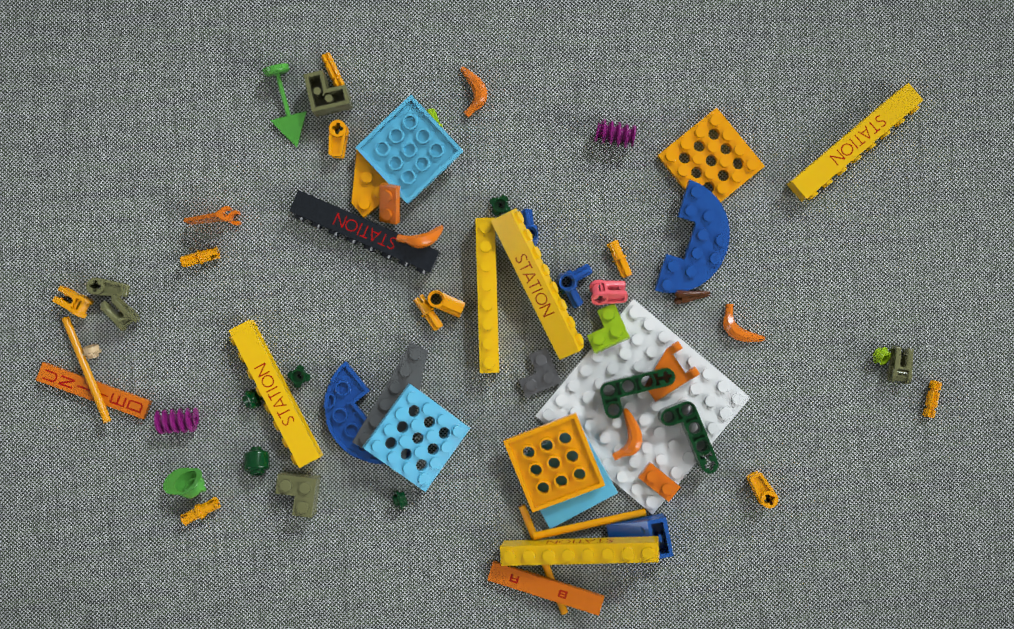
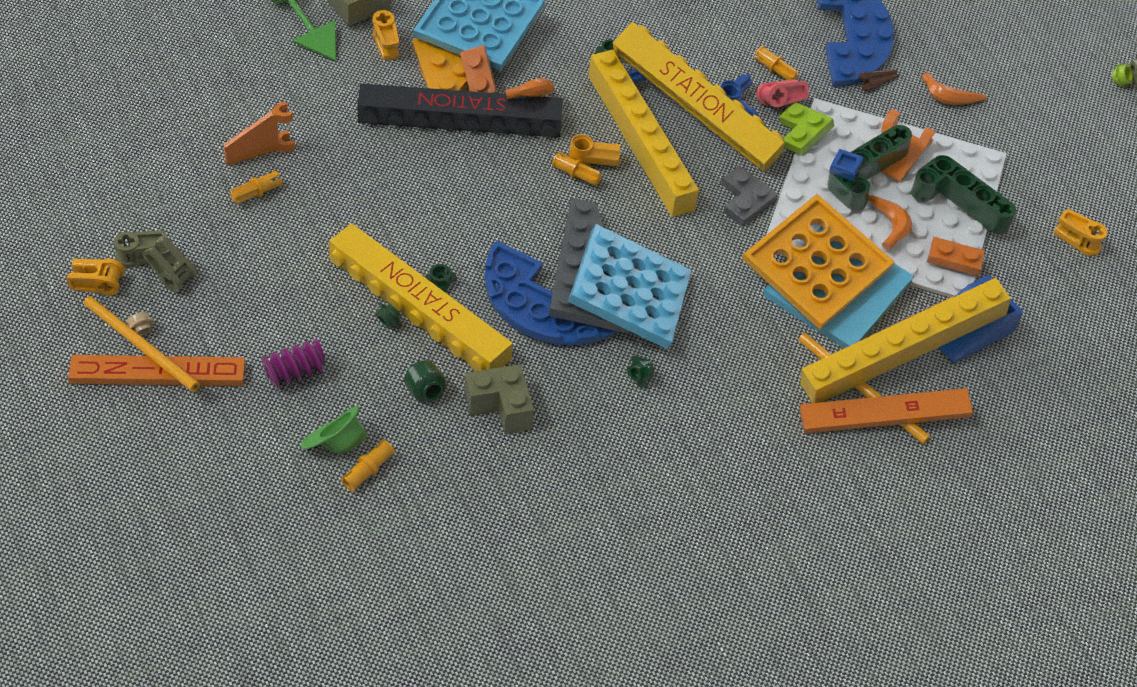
camera: 30 degrees left, 35 degrees down
(612, 391) = (846, 164): none -> blue tile

